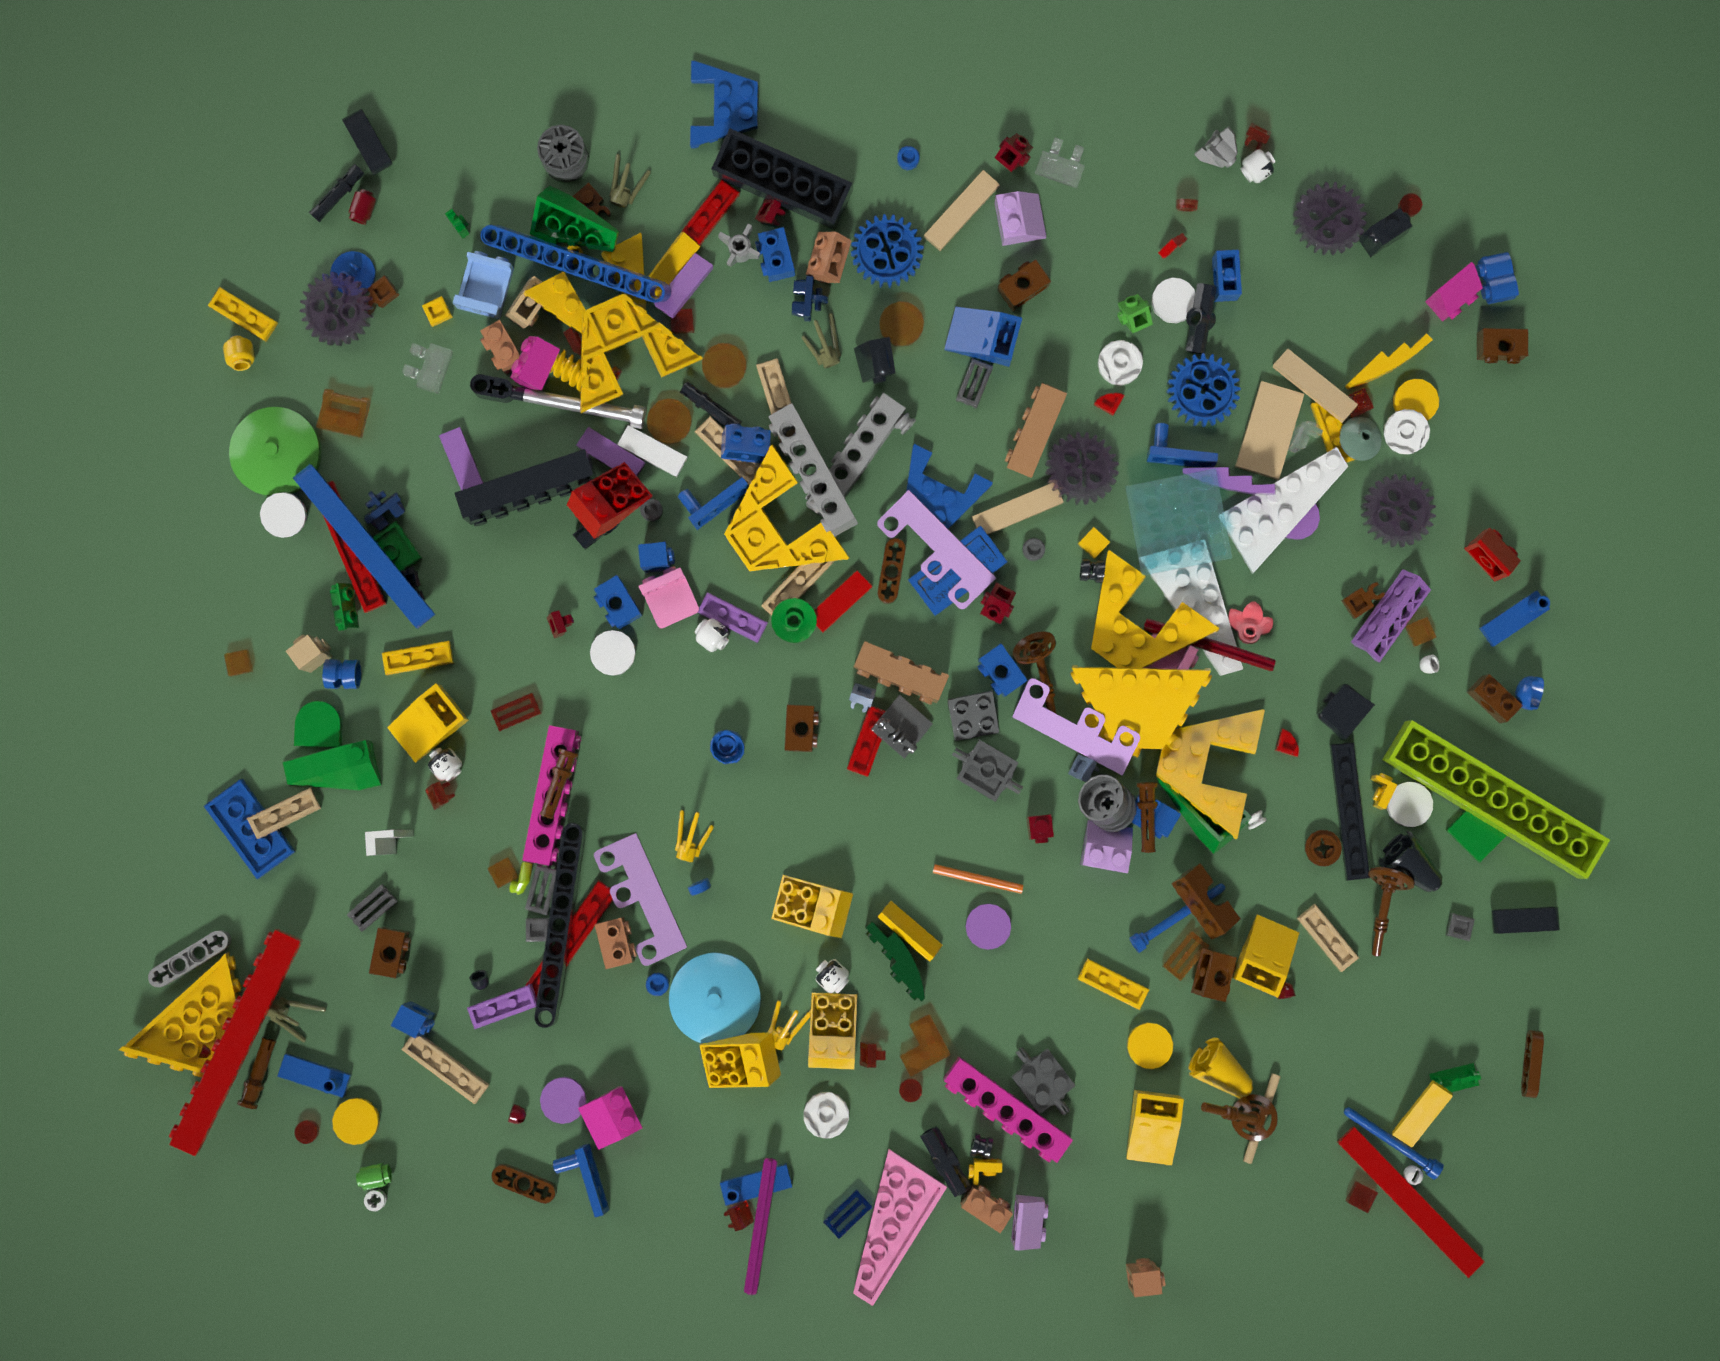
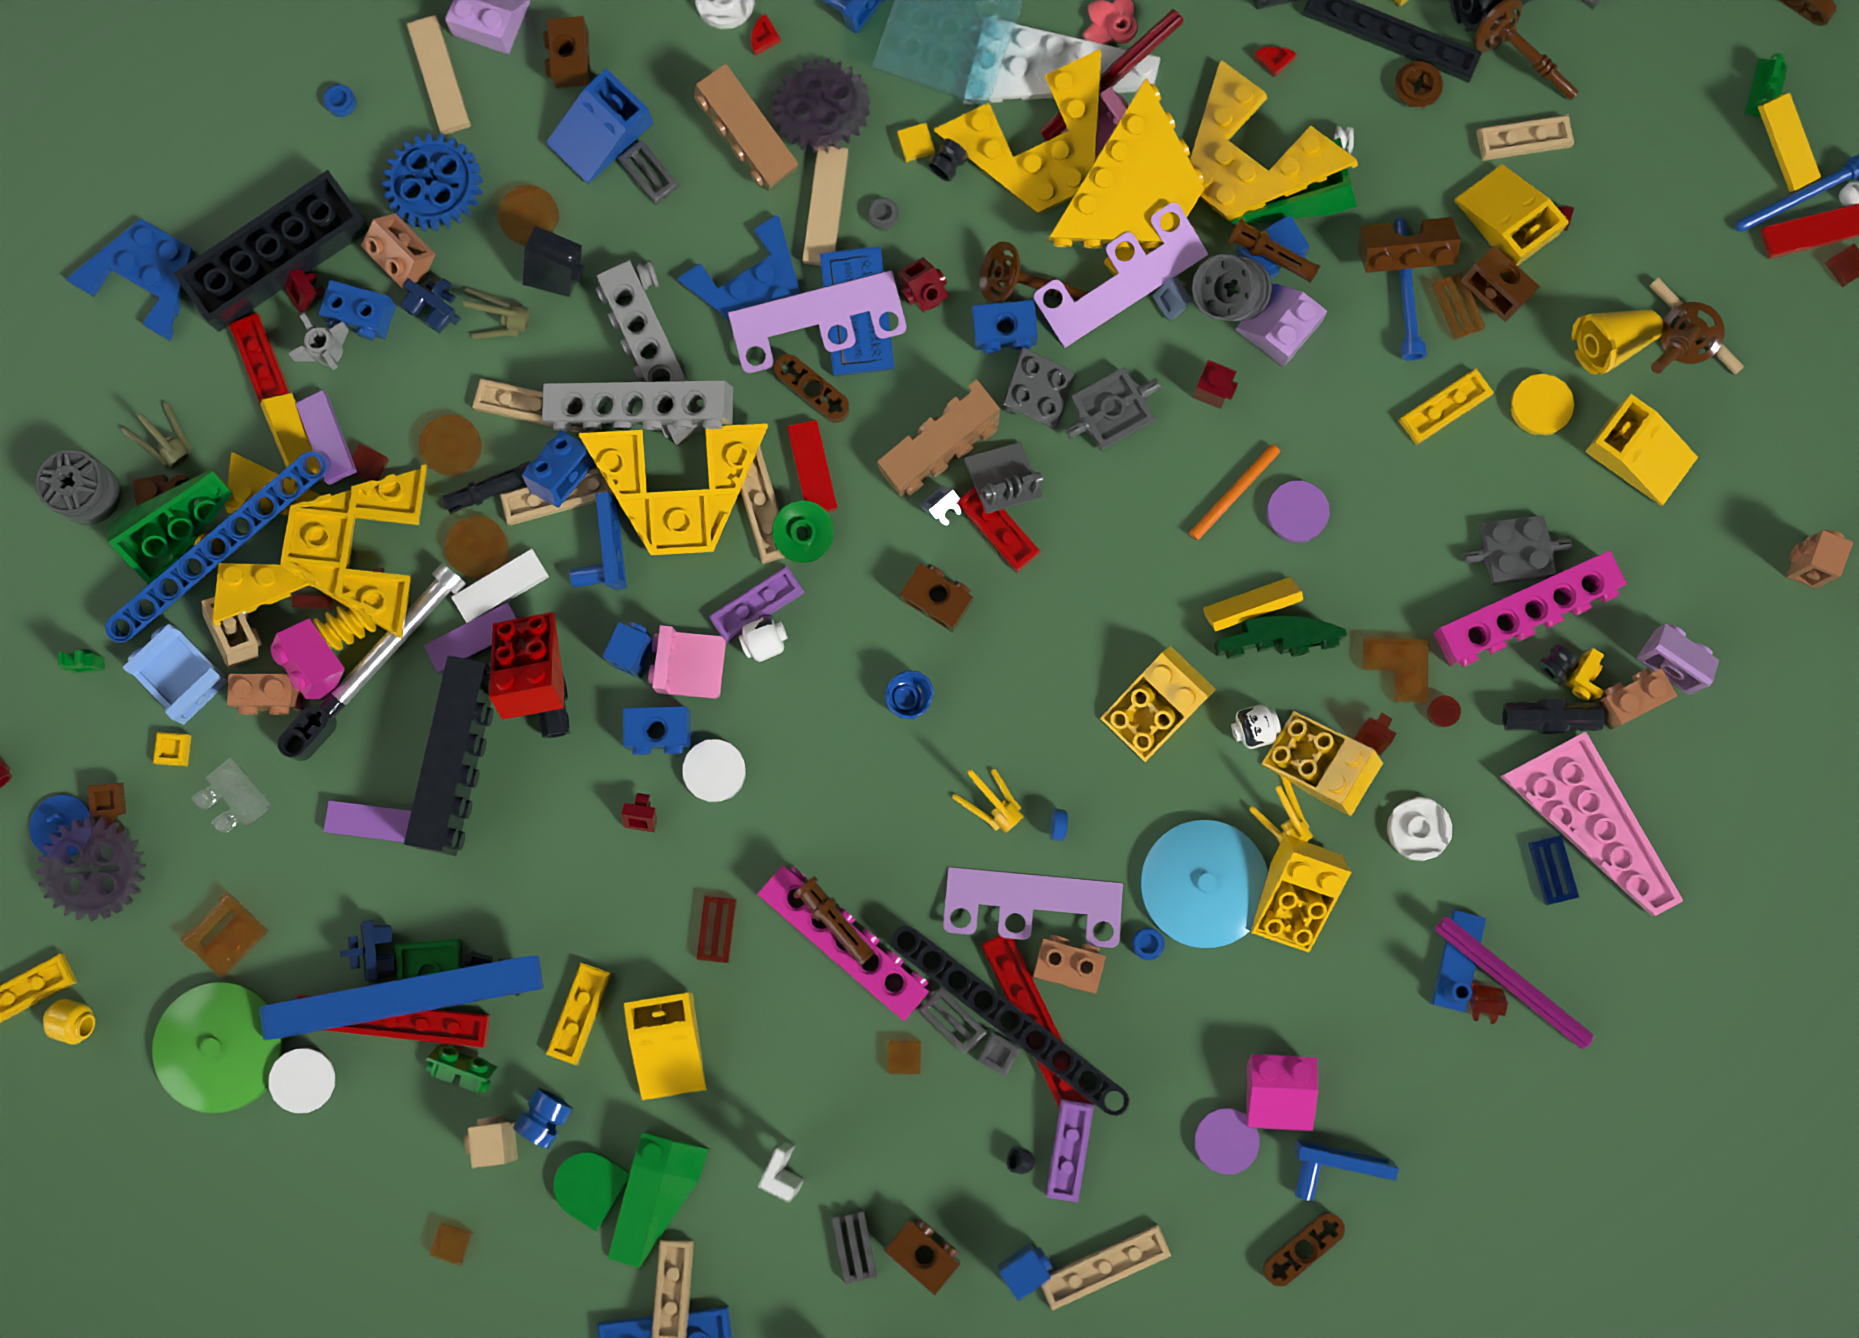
camera: 55 degrees left, 5 degrees down
(437, 795) = (762, 1083): clear red tile -> none
(445, 764) = (729, 1053): white head -> none
(517, 1114) = (1213, 1209): dark red hinge -> none
(524, 879) = (928, 1035): lime arm -> none
(651, 510) = (570, 627): dark grey tile -> none

